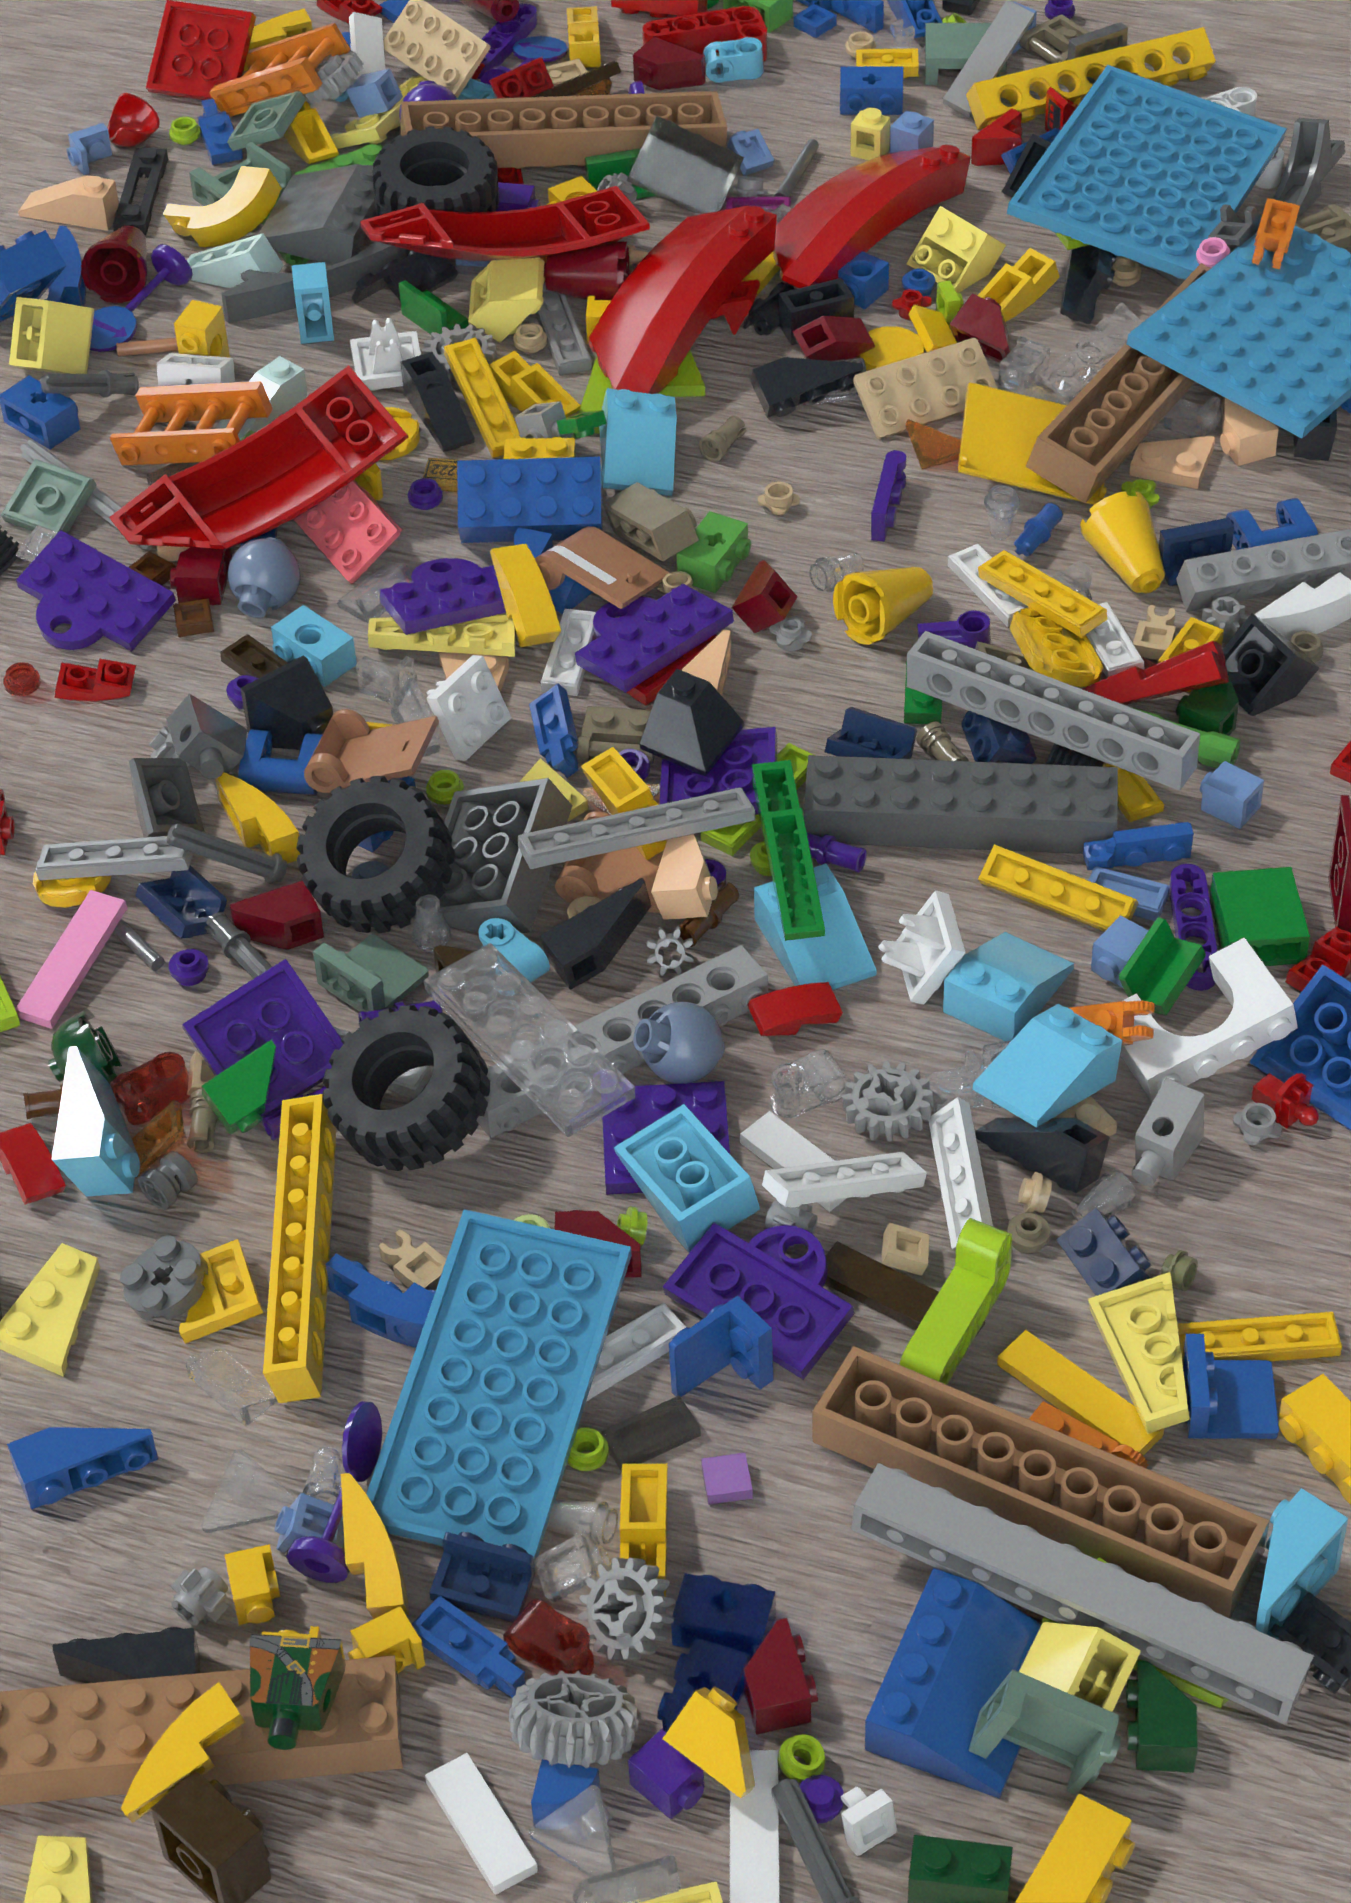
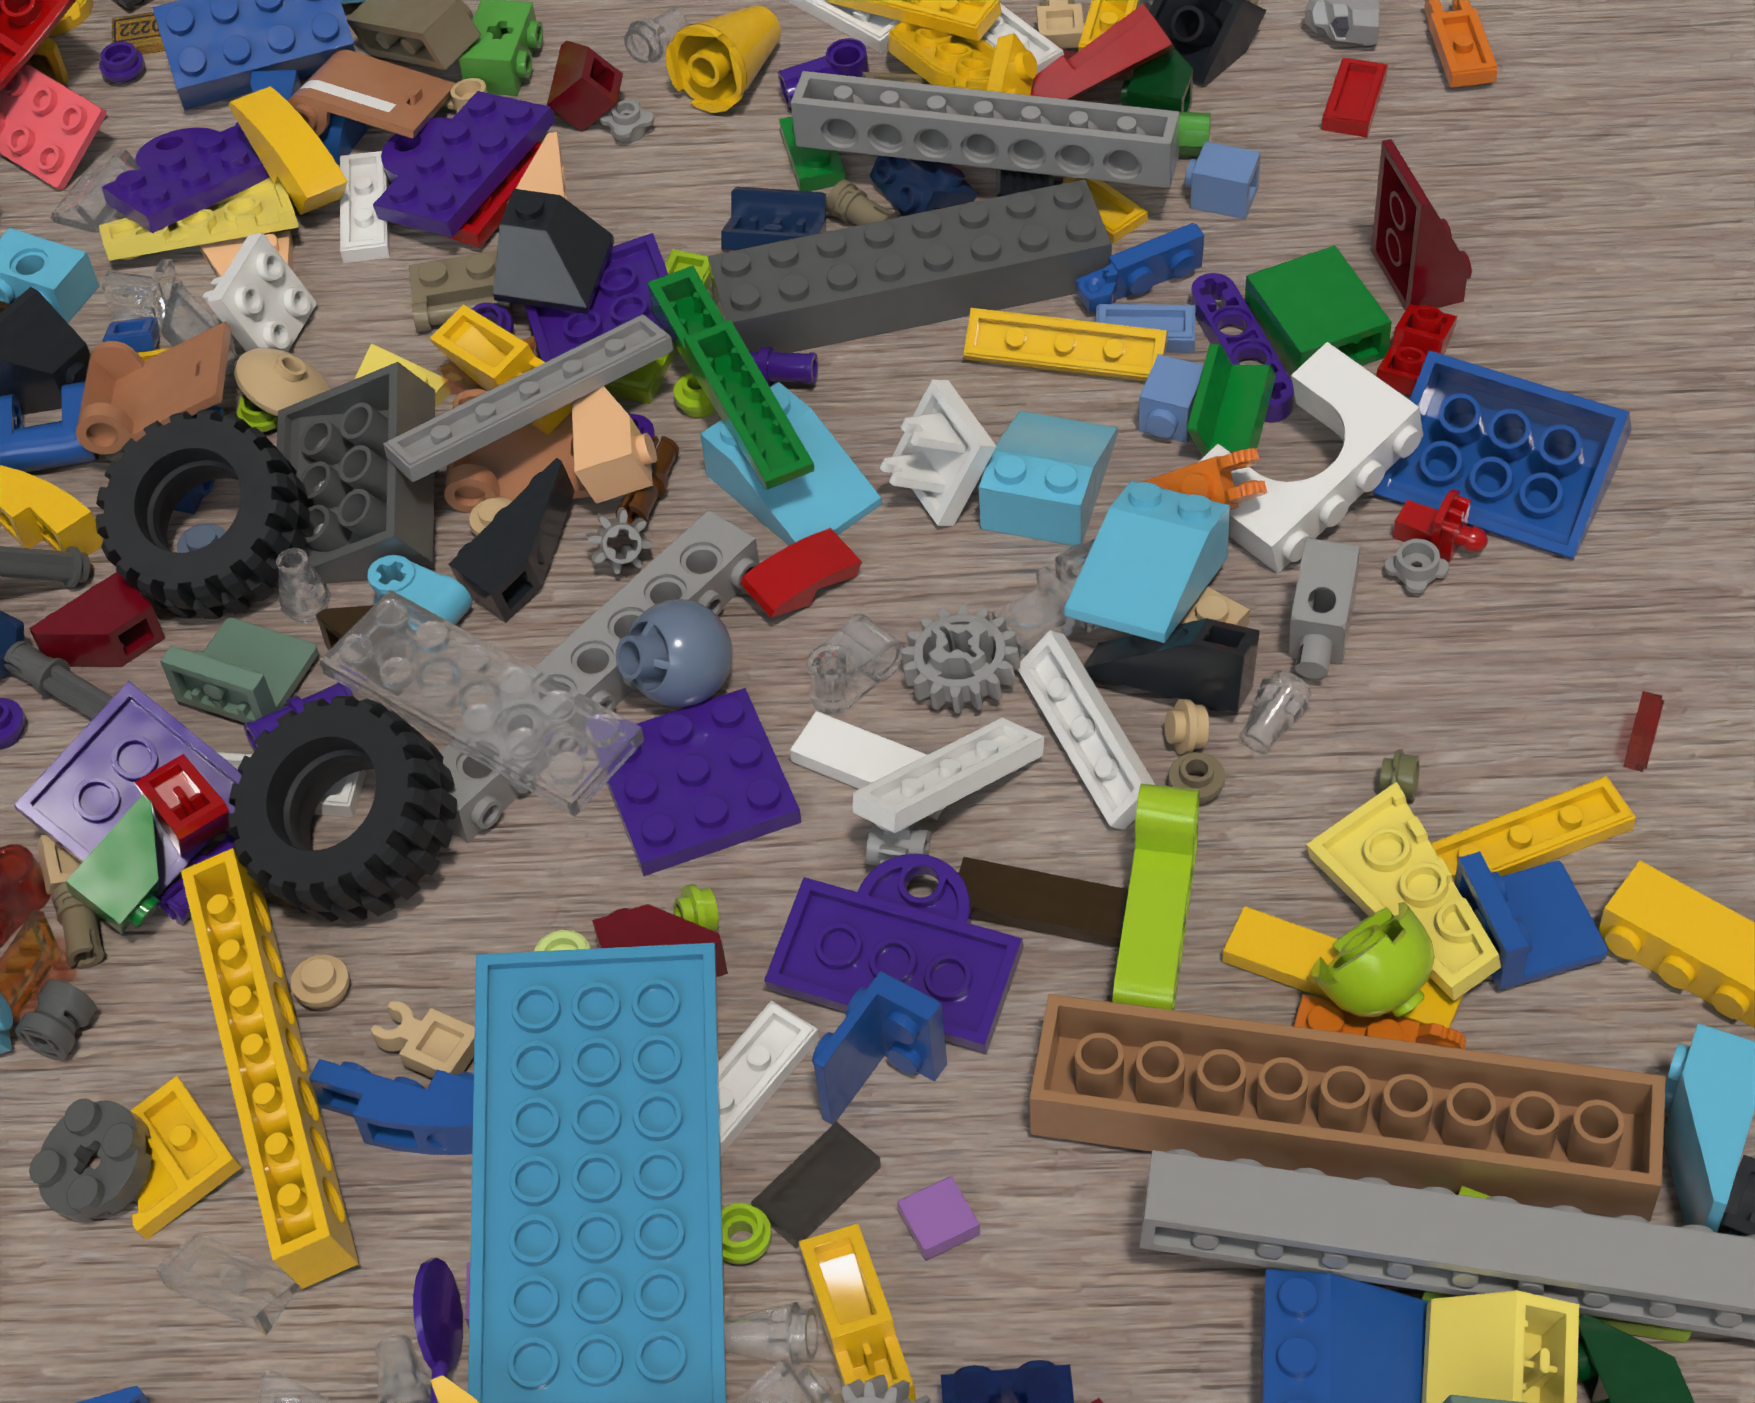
camera: 15 degrees left, 5 degrees up
(298, 1055) = (184, 803): none -> red slope
(355, 1205) = (320, 982): none -> tan plate
(370, 707) = (138, 333): none -> blue tile
(462, 767) = (277, 379): none -> tan dish
(555, 729) = (379, 303): blue hinge -> none
(688, 1176) = (748, 826): medium azure slope -> none
(905, 1249) = (1054, 843): tan plate -> none
(1090, 668) = (1012, 67): none -> yellow plate
(1097, 1392) = (1379, 965): none -> lime cylinder
(1102, 1253) = (1300, 783): dark blue bracket -> none

